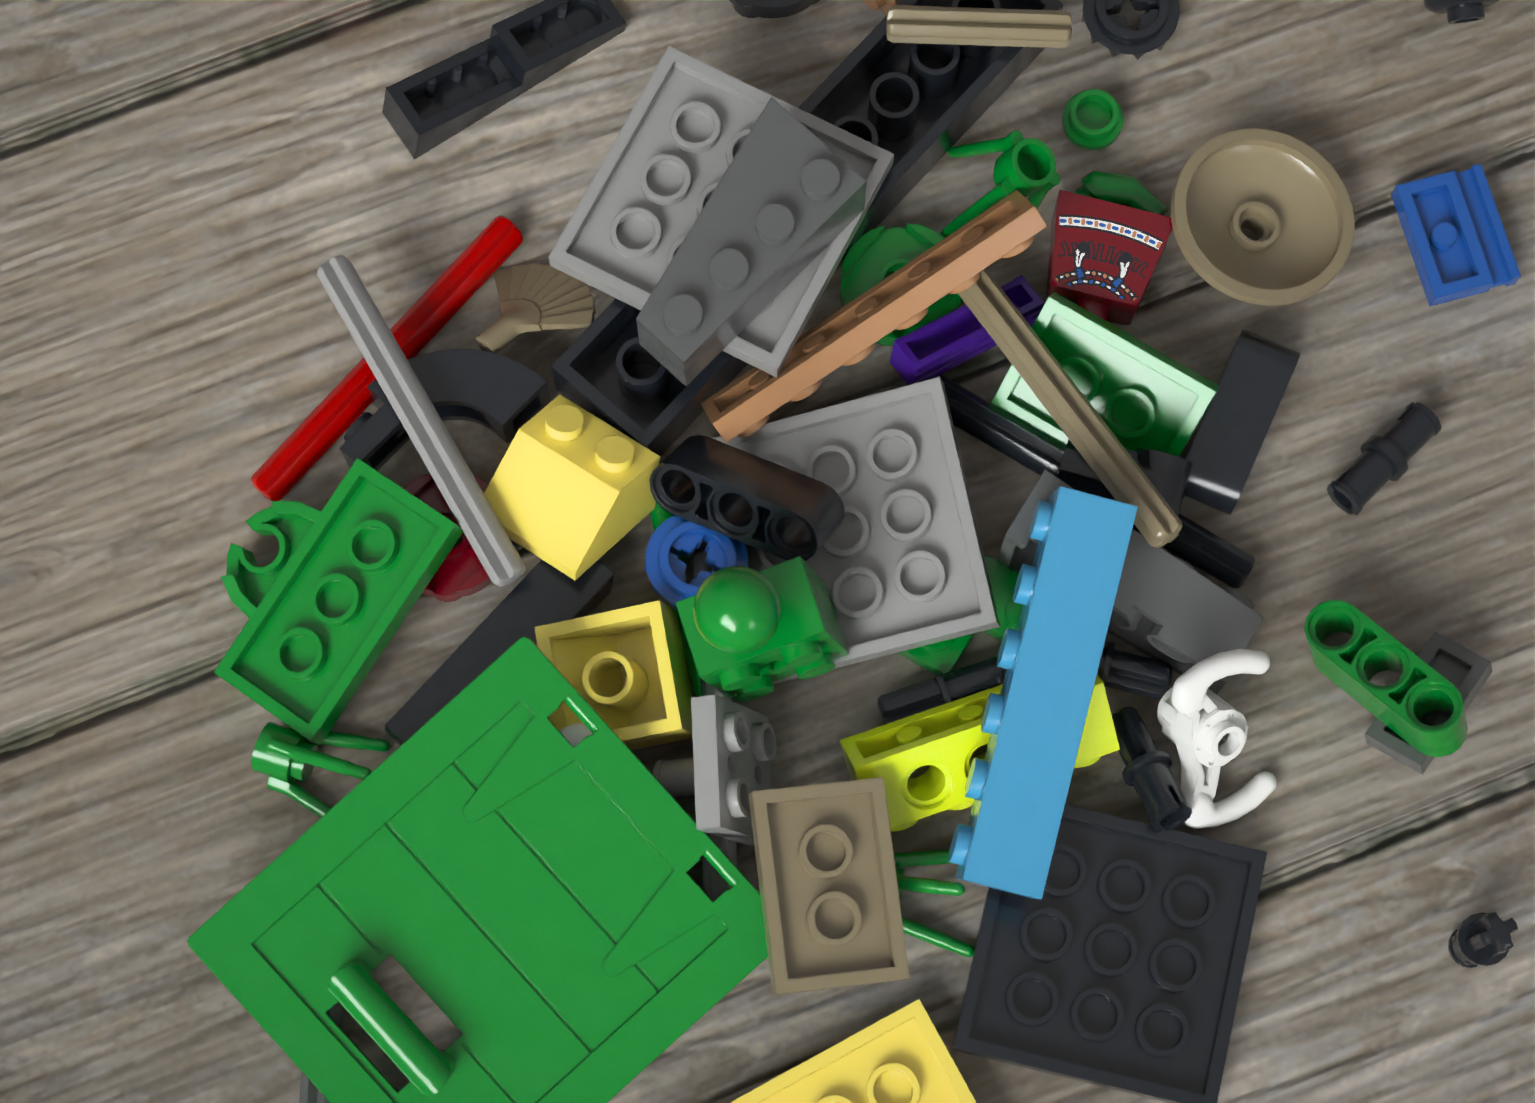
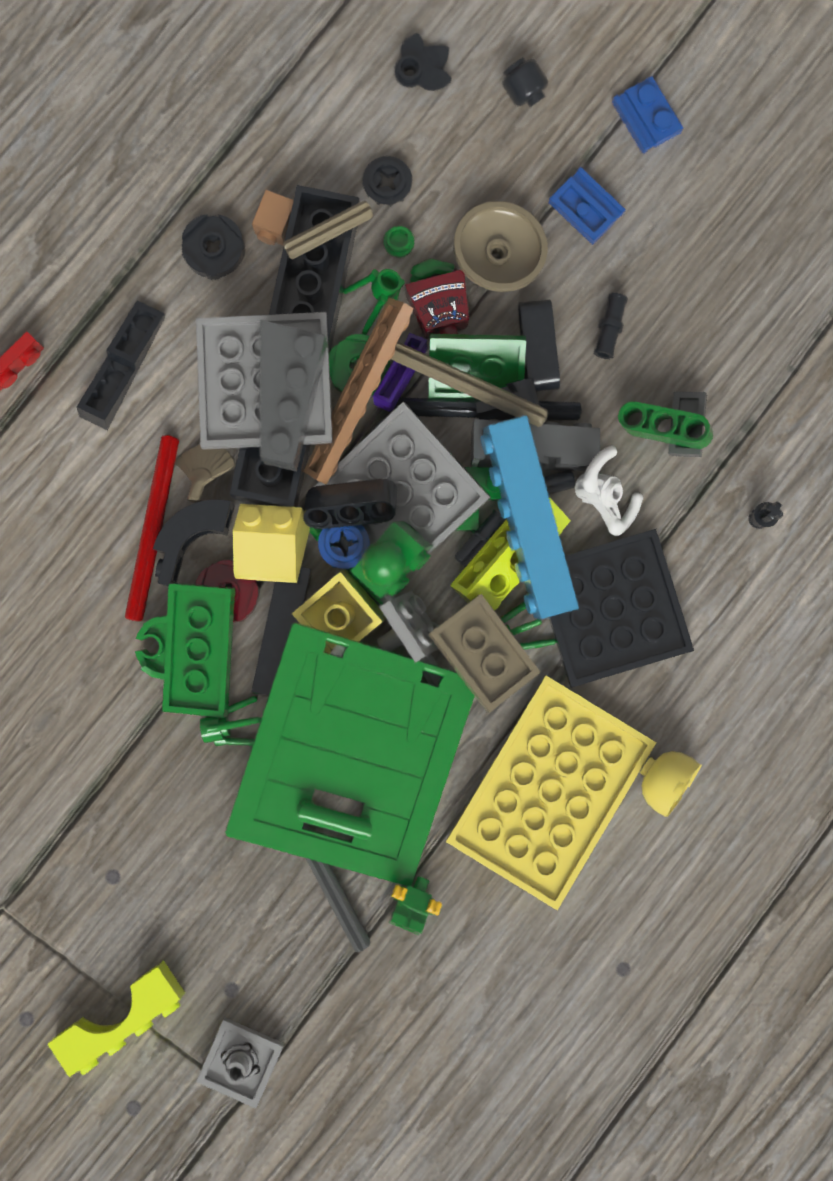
camera: 35 degrees left, 10 degrees up
(421, 421) = (186, 550): light grey axle -> none
(1149, 772) = (587, 522): black axle -> none

